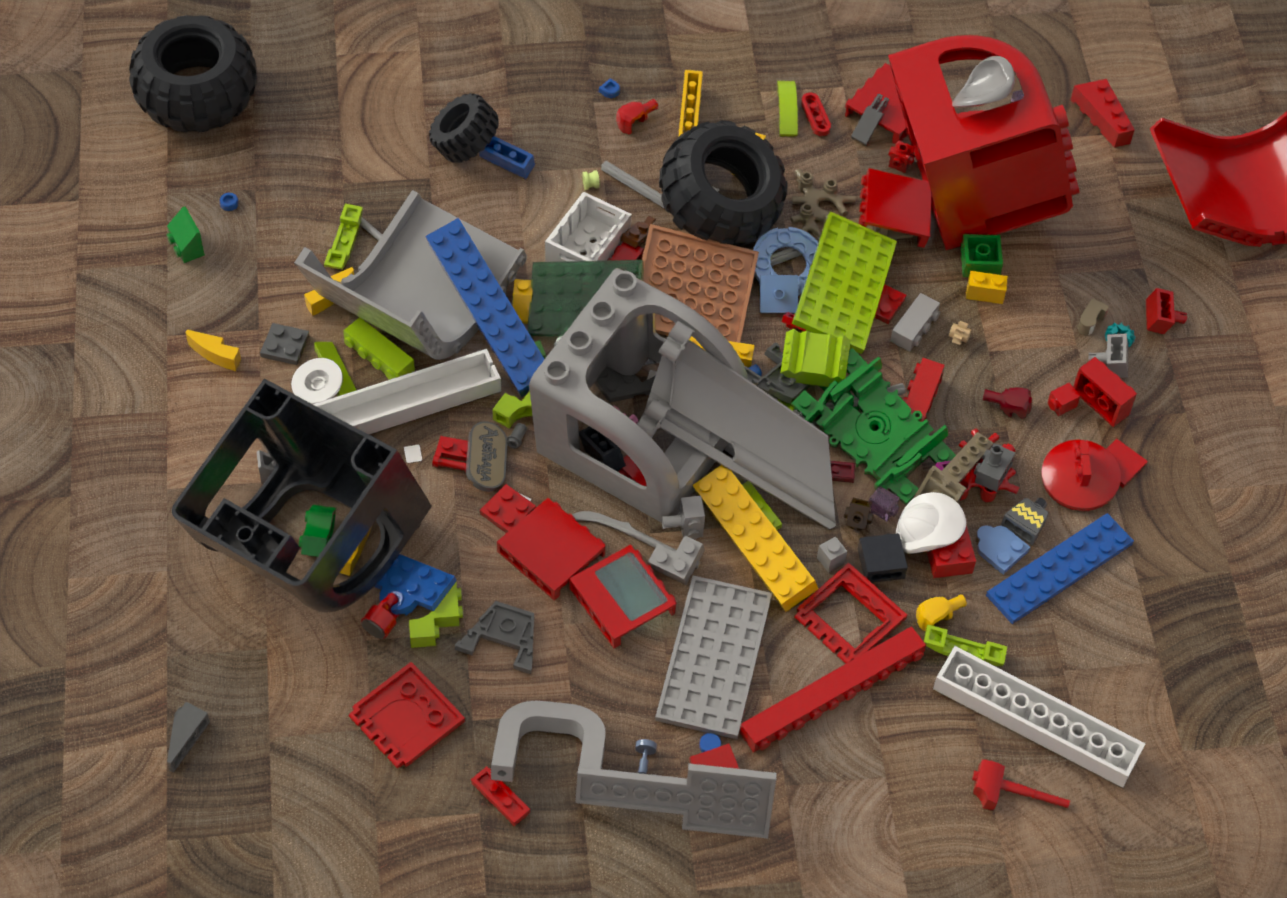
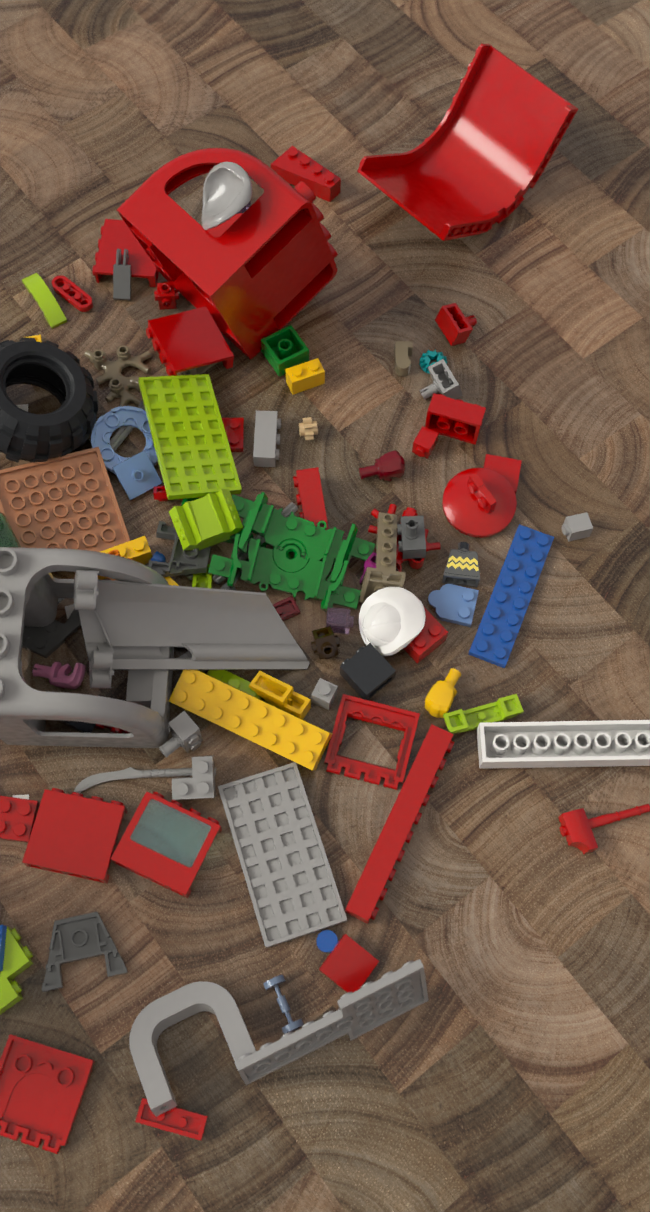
camera: 30 degrees left, 10 degrees up
(793, 533) = (280, 695): none -> yellow slope
(1161, 543) = (577, 526): none -> light grey brick

